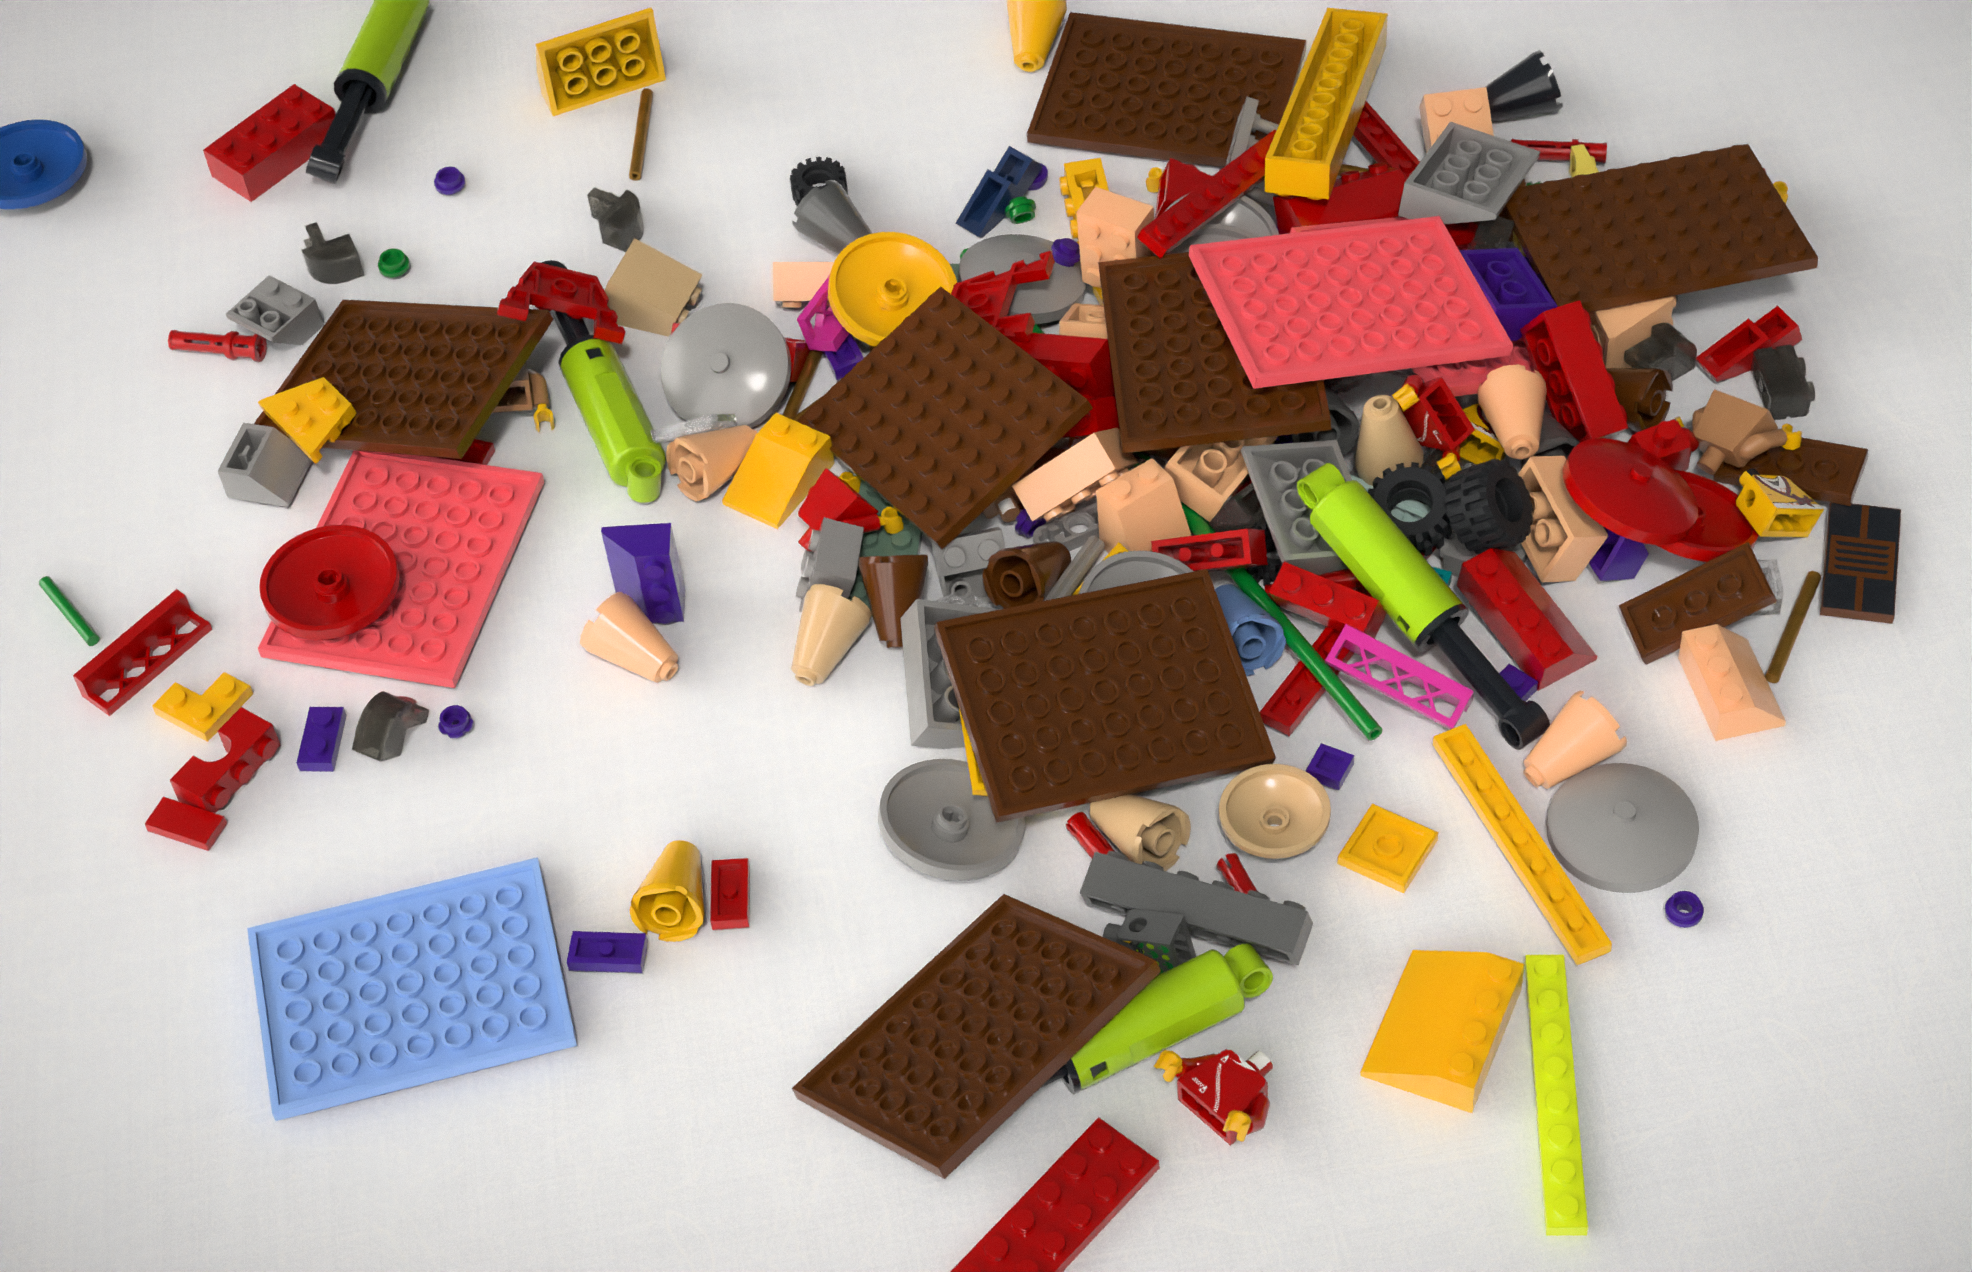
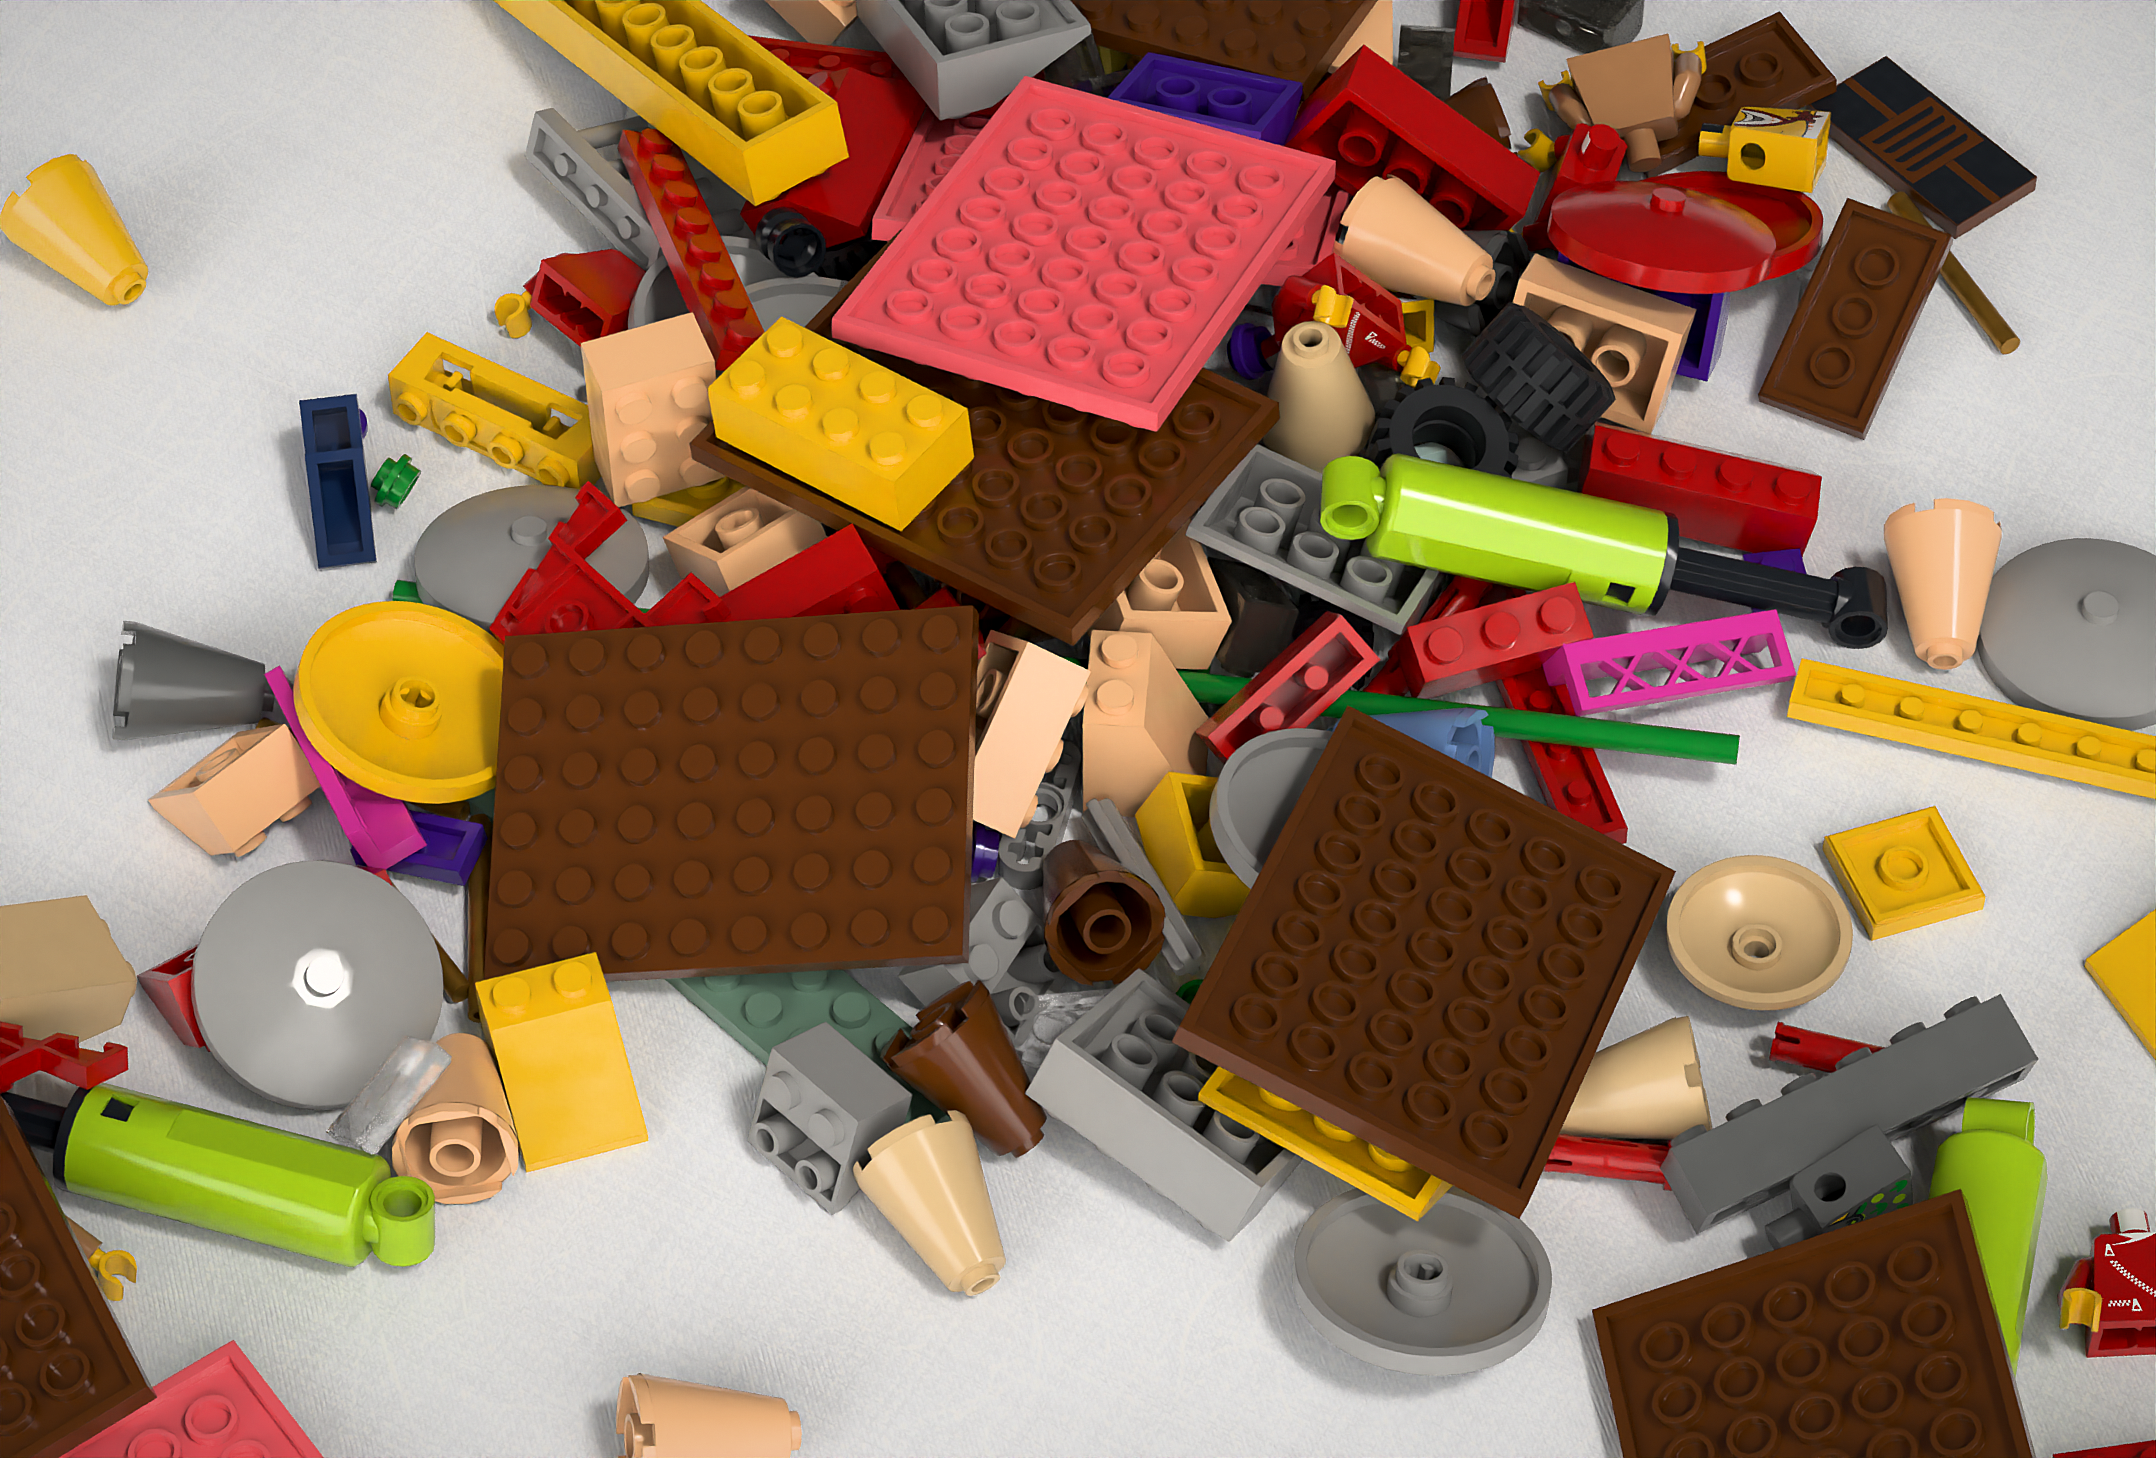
camera: 55 degrees left, 0 degrees up
(647, 568) = (618, 1316): dark purple slope -> none
(815, 173) = (54, 634): black tyre -> none
(840, 501) = (724, 1037): red torso -> none
(1066, 252) = (555, 482): dark purple plate -> none
(1147, 293) = (841, 423): none -> yellow brick
(1160, 87) = (354, 196): reddish brown plate -> none
(1264, 224) = (800, 251): none -> black wheel
(1330, 766) = (1724, 832): dark purple plate -> none
(1728, 682) = (1982, 391): light nougat slope -> none

